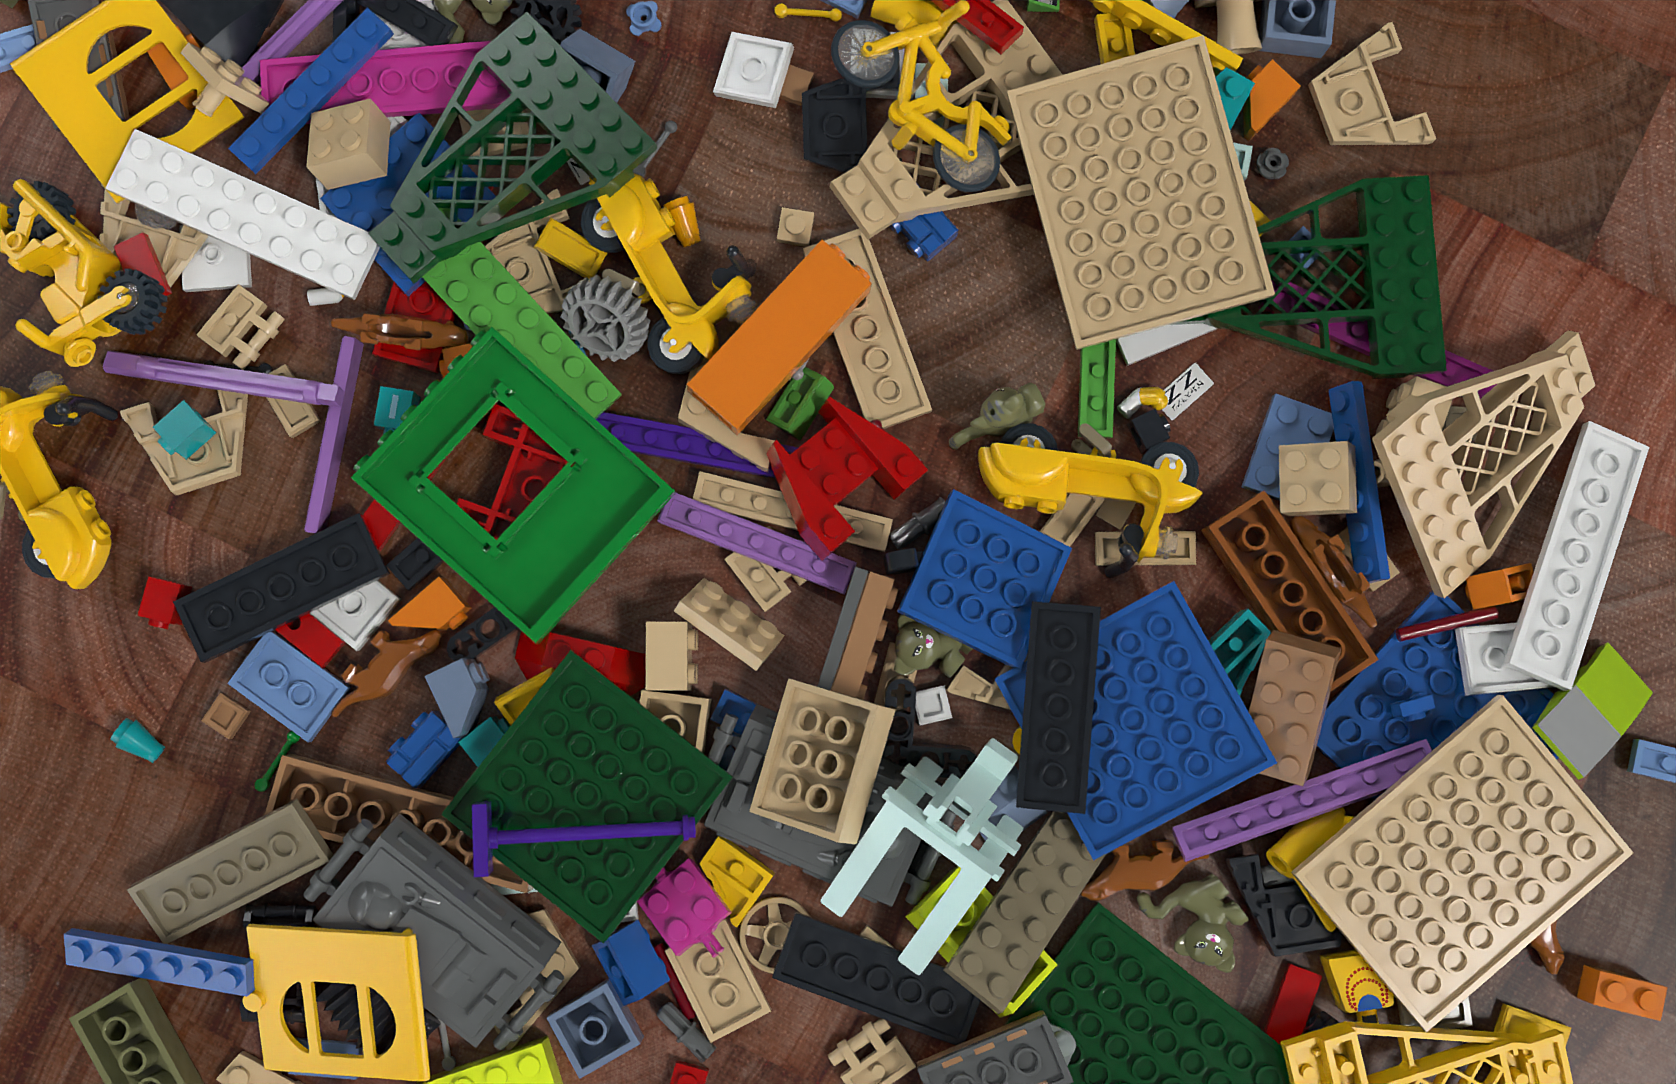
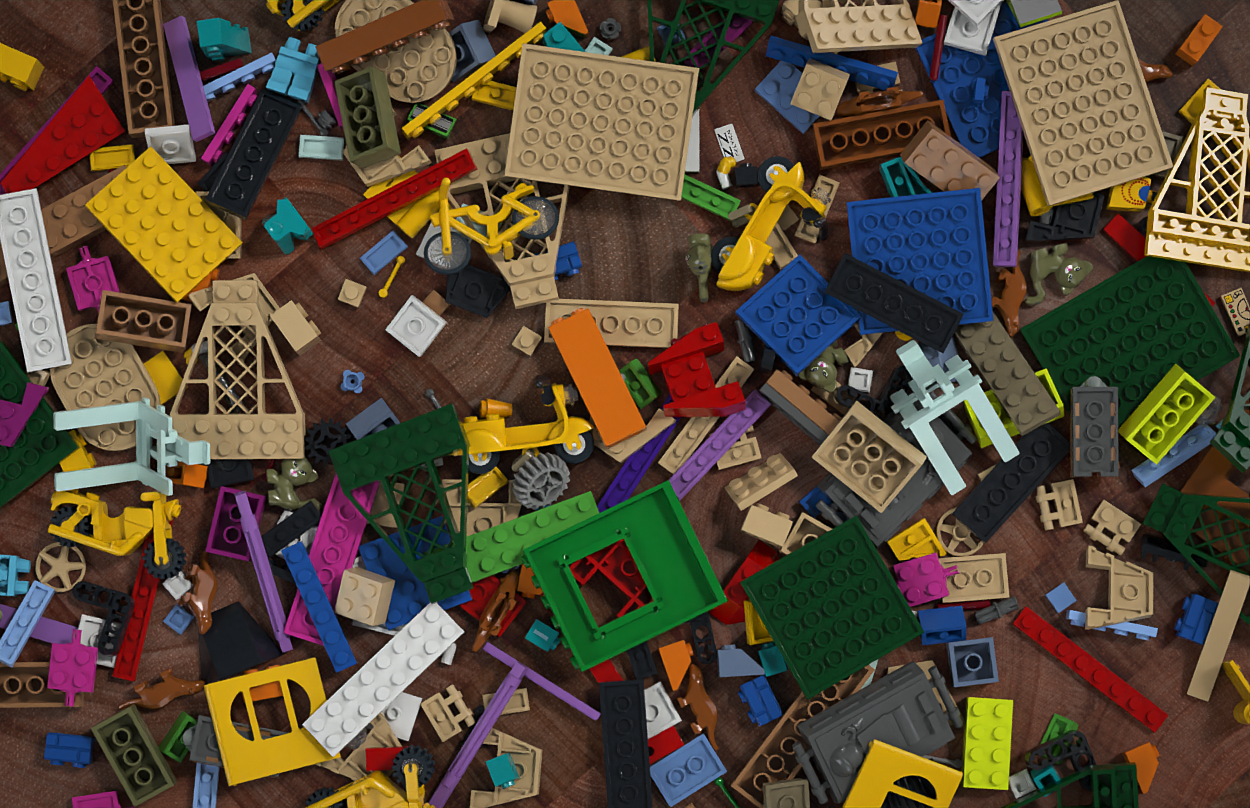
camera: 70 degrees left, 0 degrees up
(223, 80) = (293, 658): tan plate -> none
(488, 837) = (834, 672): dark purple tile -> none

